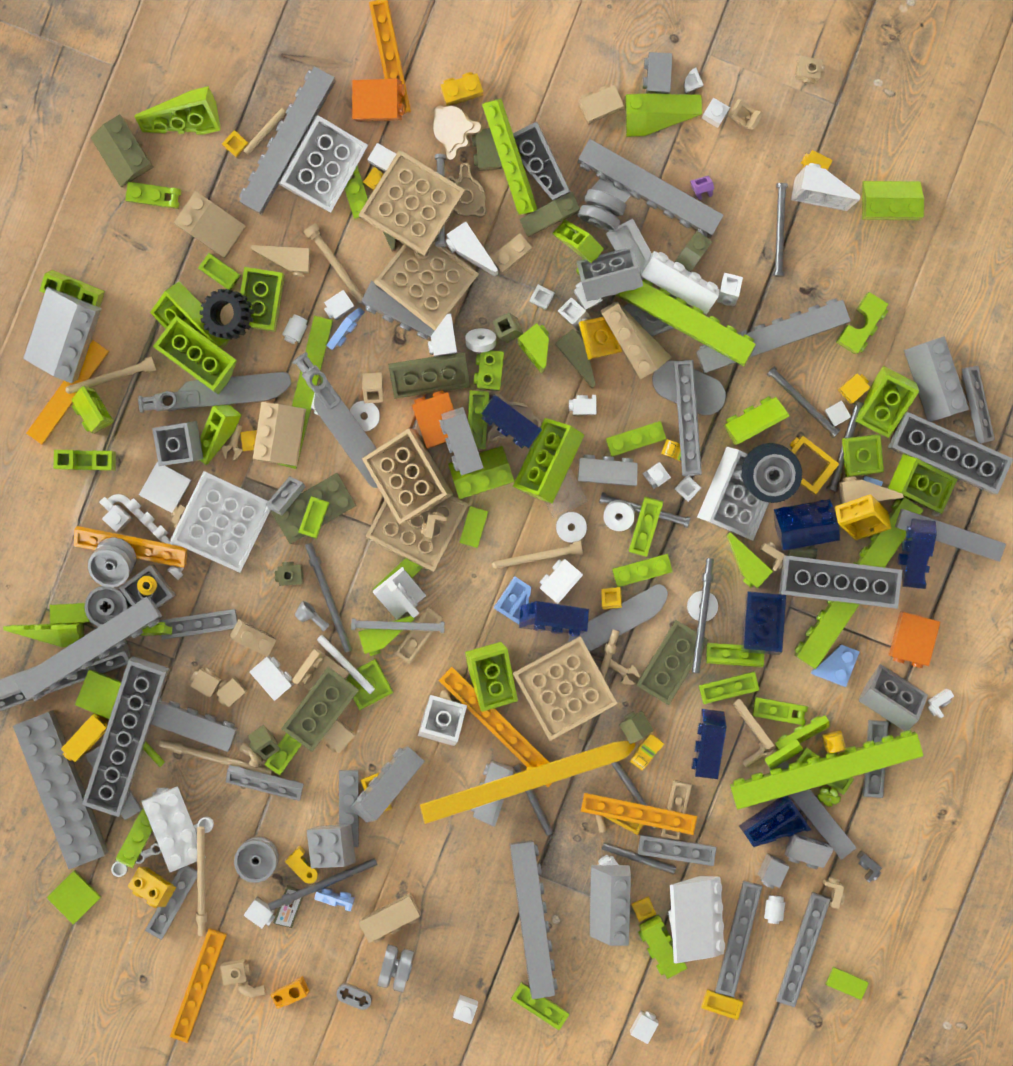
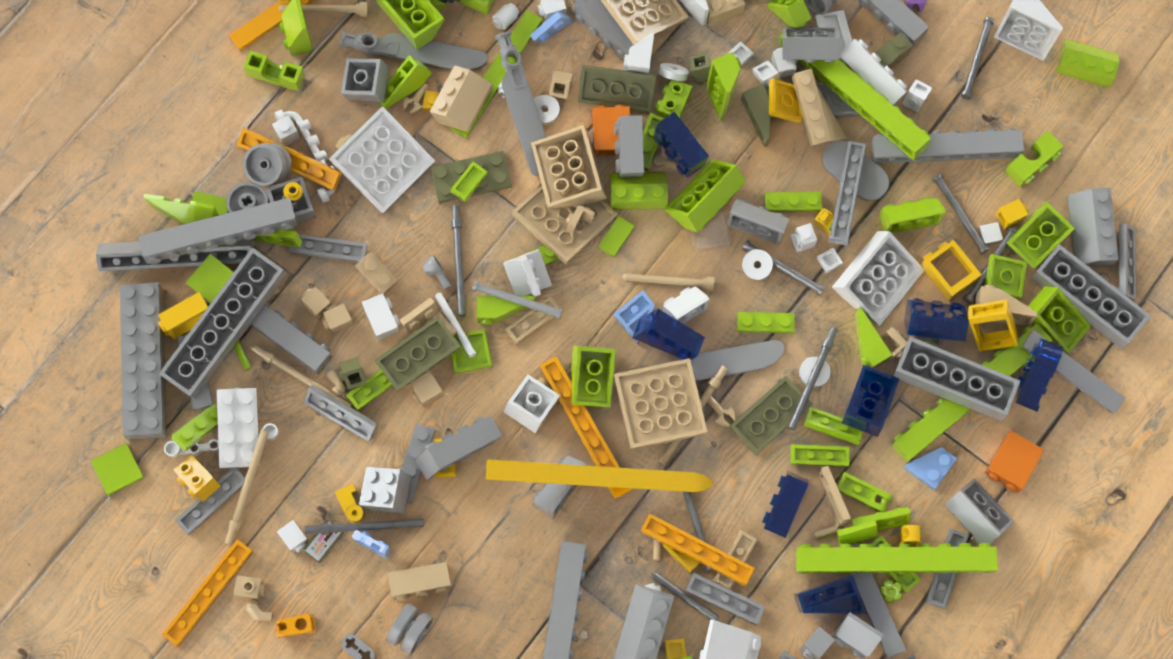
camera: 15 degrees right, 15 degrees down
(165, 487) = (339, 118): white tile -> none
(256, 870) = (296, 484): light grey wheel -> none
(285, 495) = (449, 155): light grey plate -> none
(289, 574) = (429, 227): olive brick -> none
(536, 806) = (598, 516): flat silver bar -> none
(562, 527) = (713, 256): white piece -> none
(583, 405) = (752, 157): white brick -> none
(611, 598) = (729, 338): yellow plate -> none
(635, 726) = (718, 464): olive brick -> none
(645, 526) = (780, 280): lime plate -> none
(646, 751) = (722, 492): yellow leg -> none
(781, 483) = (925, 248): wheel -> none
(941, 699) = (1027, 528): white bracket -> none

